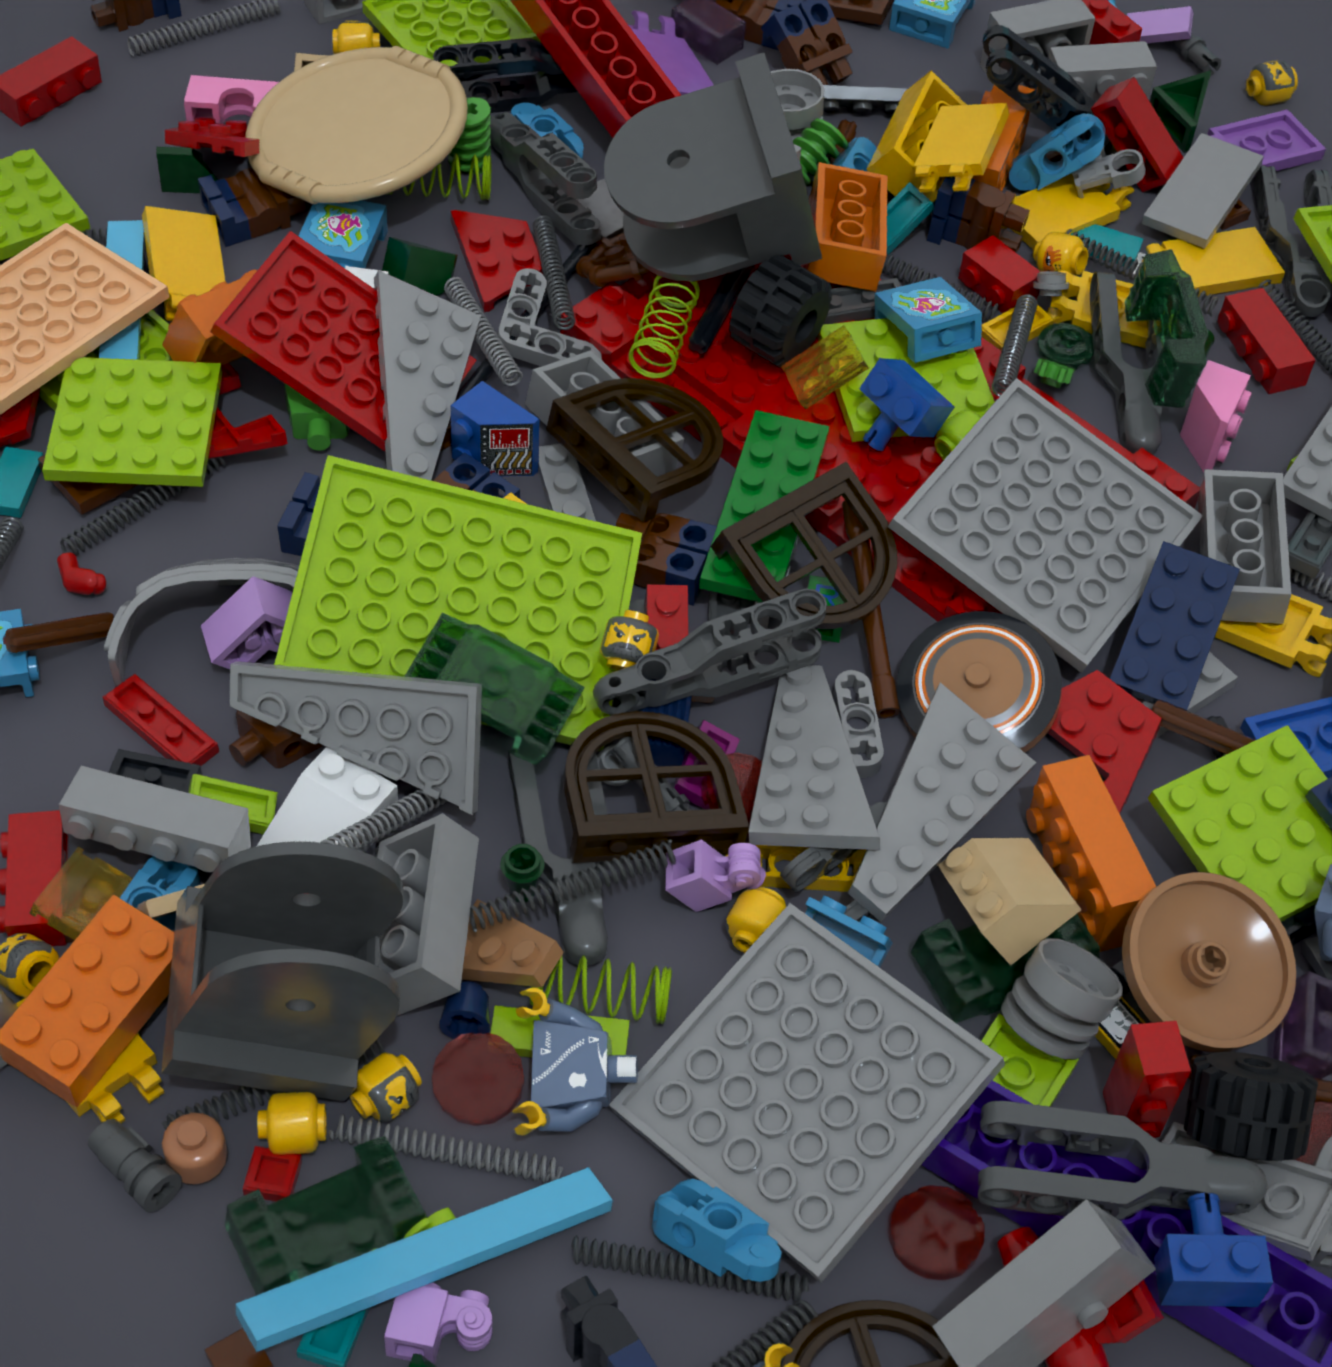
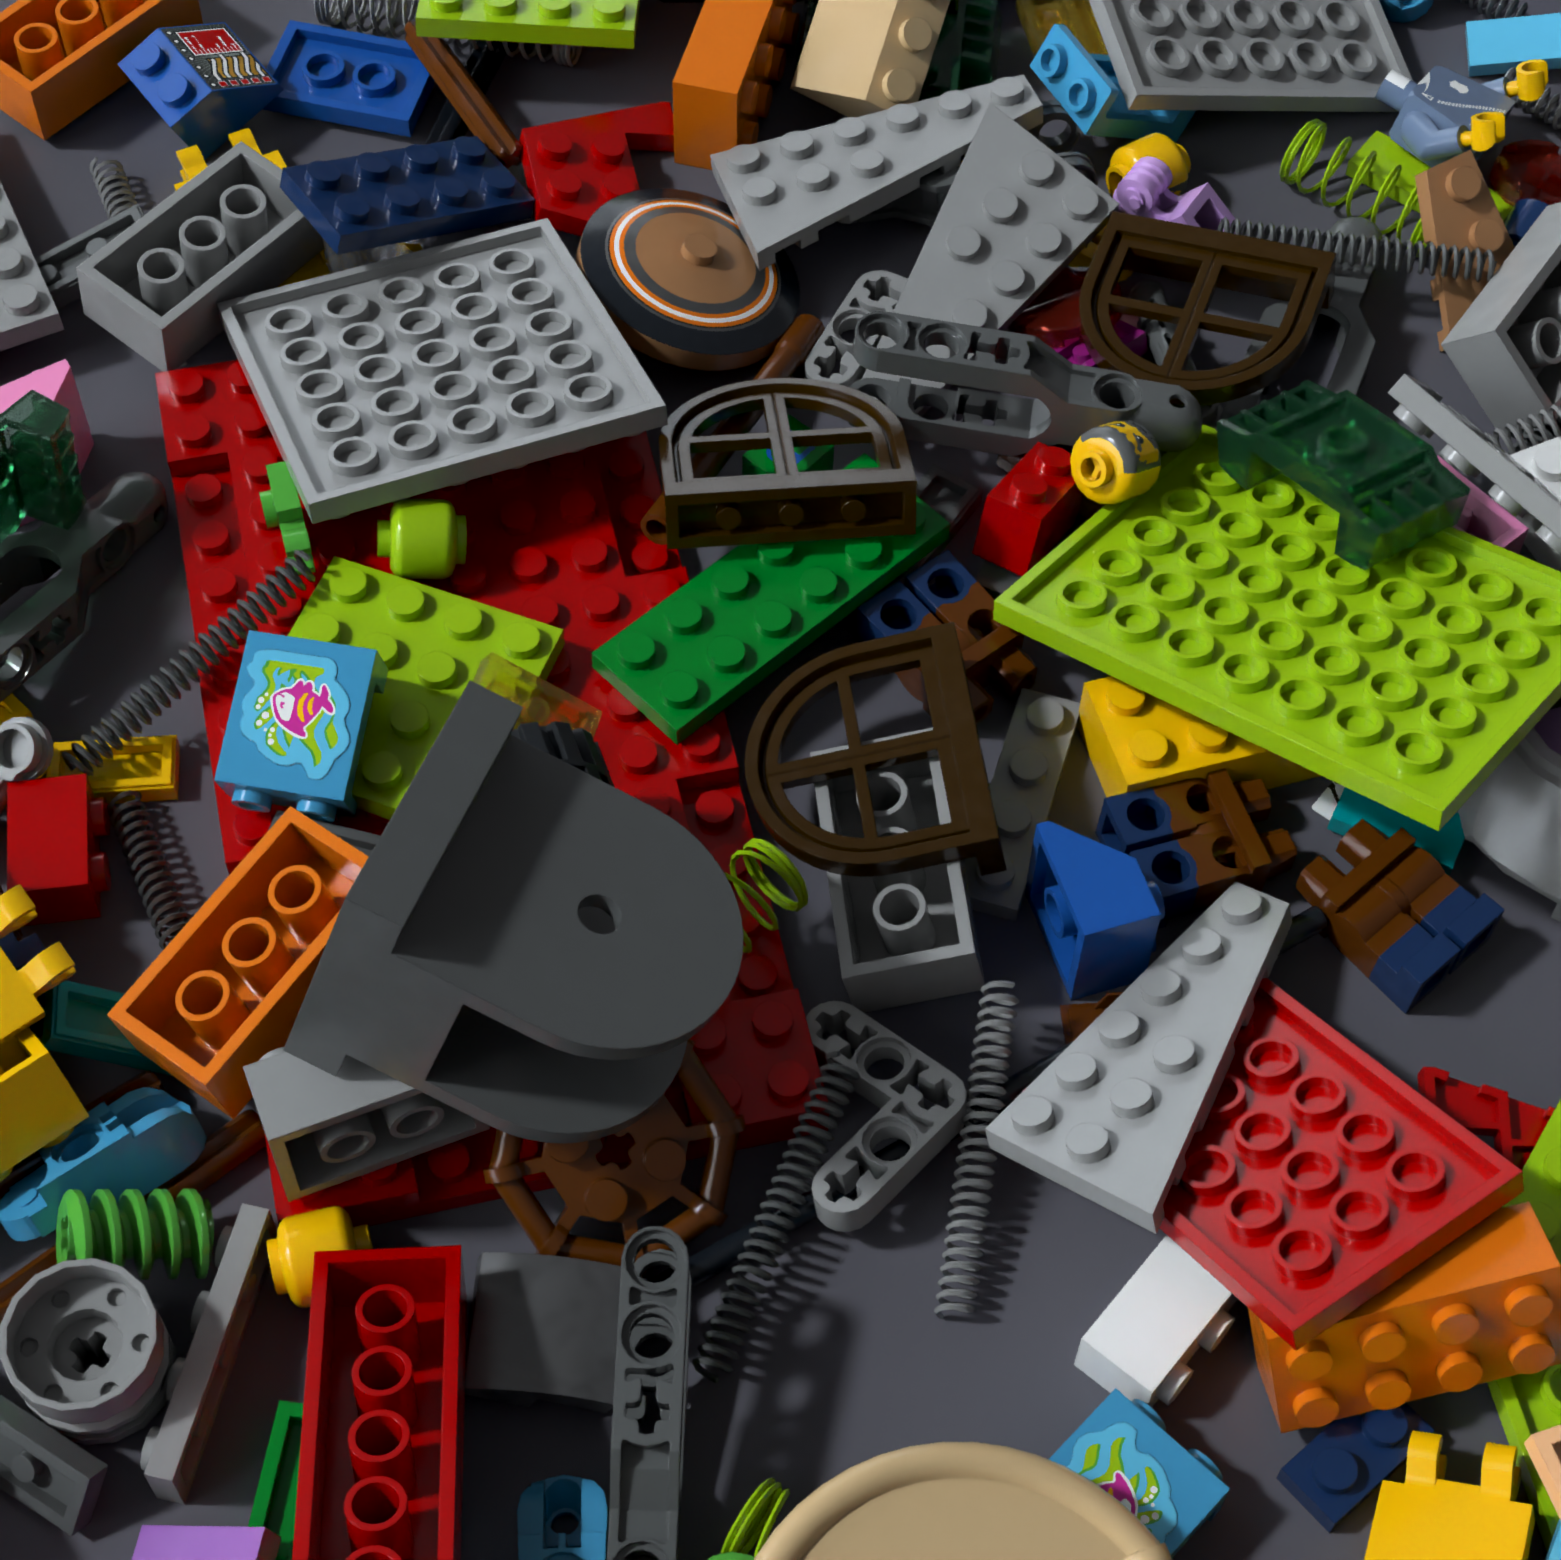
camera: 145 degrees left, 5 degrees up
(419, 265) = (1015, 1367): dark green slope -> none
(494, 252) = (831, 1347): red wing -> none
(522, 868) = (1394, 320): dark green cone -> none
(904, 402) = (483, 575): blue brick -> none
(1053, 373) = (154, 634): bright green plate -> none
(1069, 336) = (66, 678): clear green gear -> none

